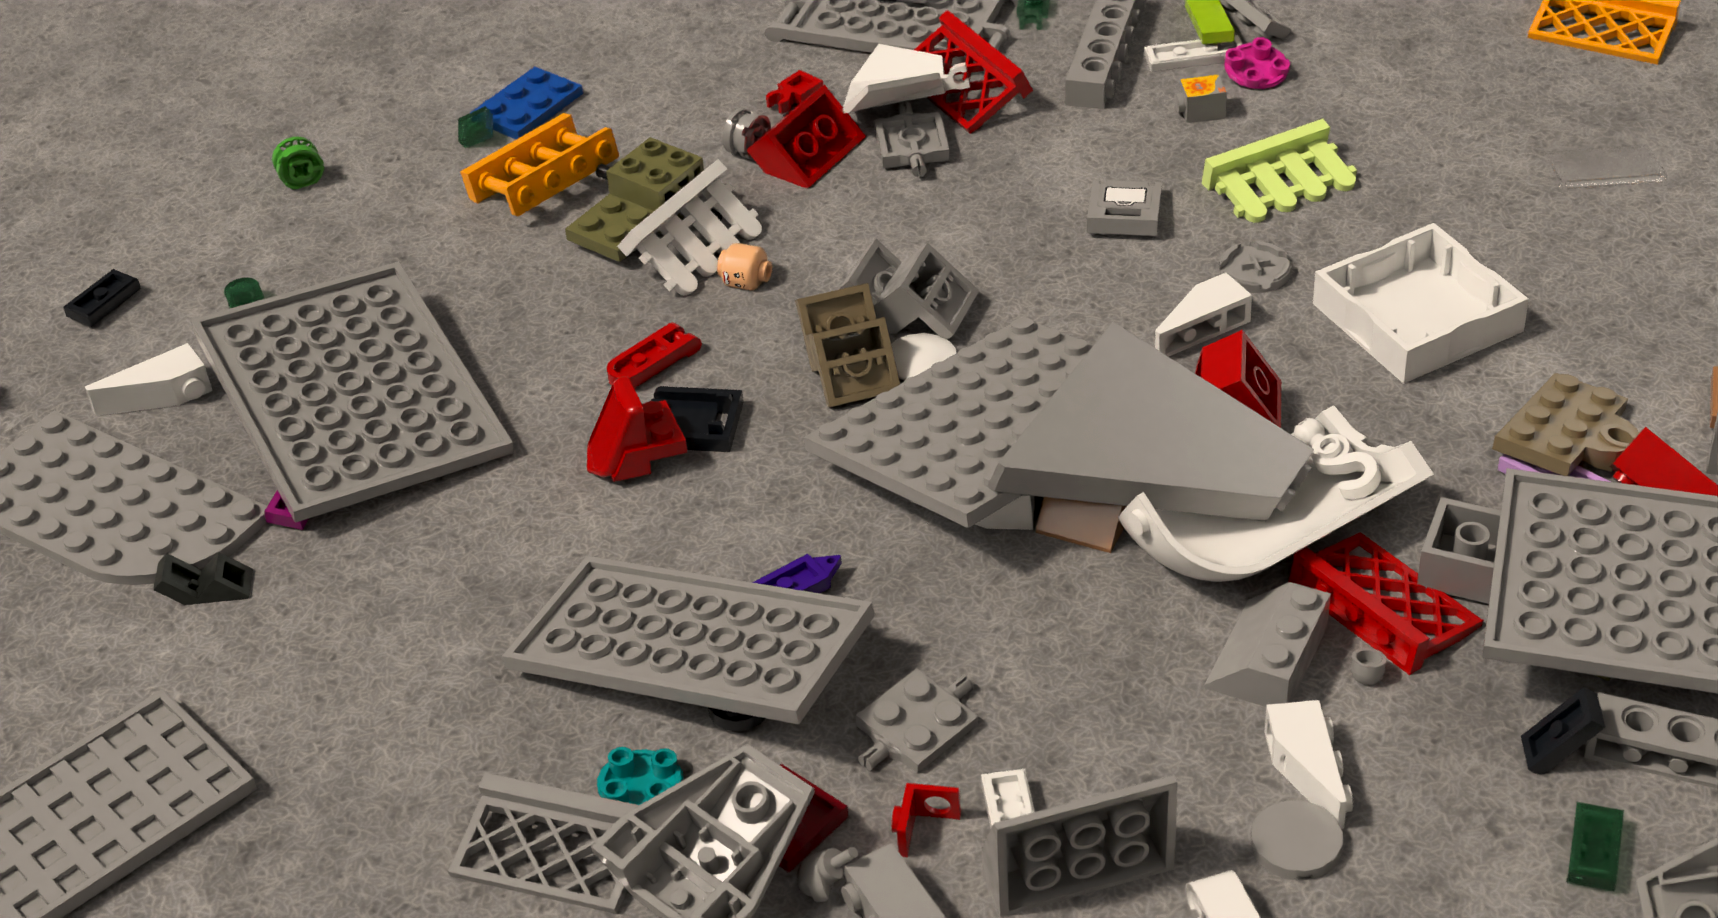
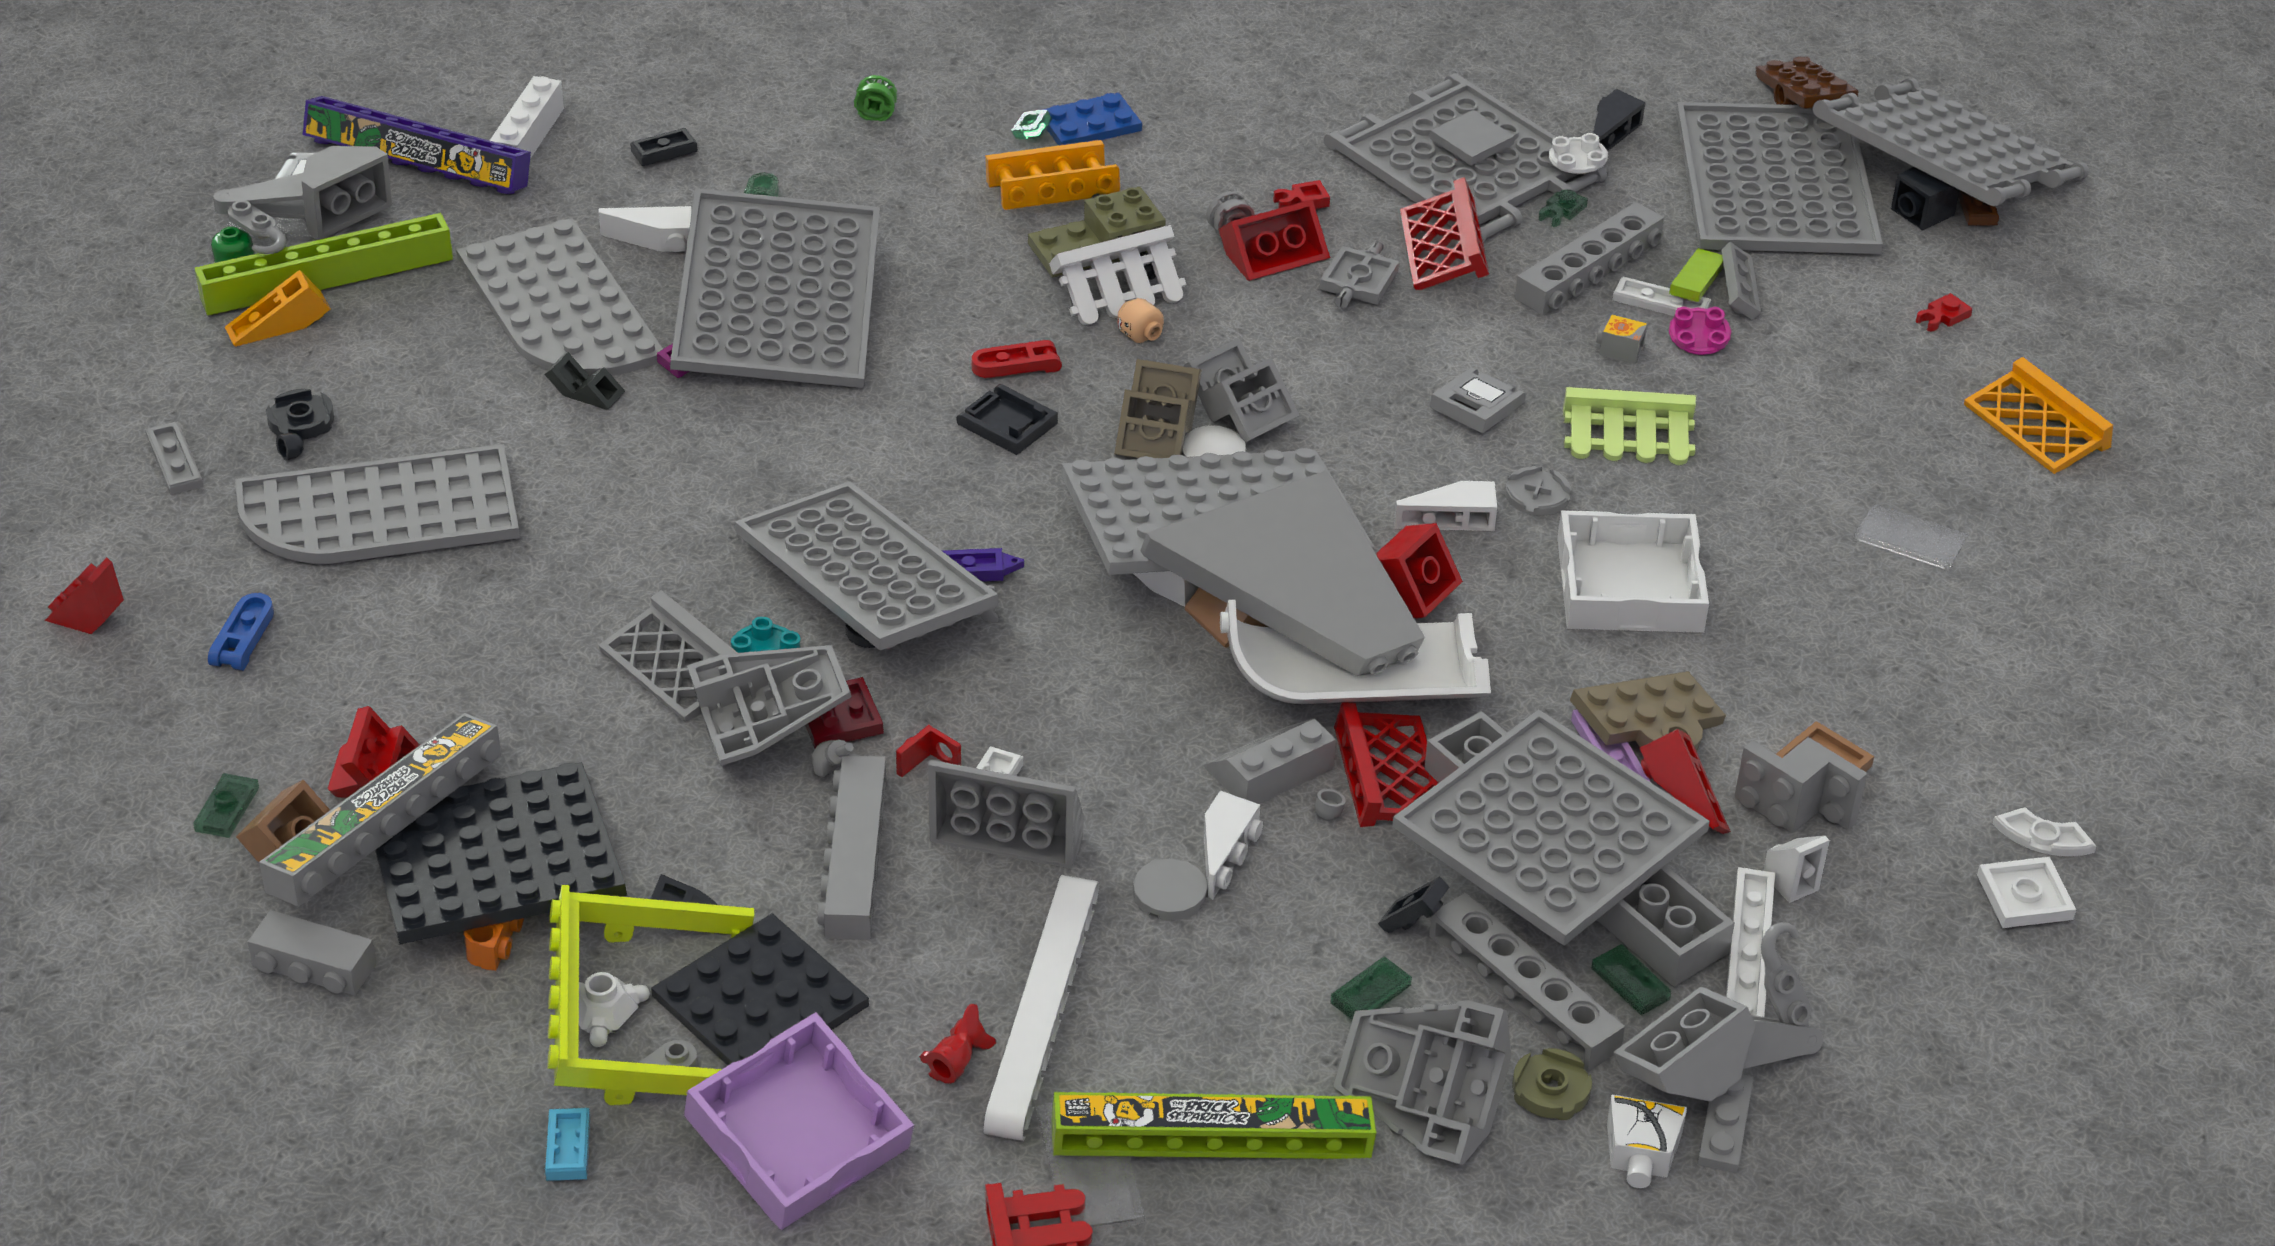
camera: 25 degrees right, 0 degrees up
(632, 434) = (949, 409): red piece -> none
(900, 76) = (1389, 218): white panel -> none
(916, 721) = (981, 693): light grey plate -> none
(1334, 456) = (1444, 652): white piece -> none

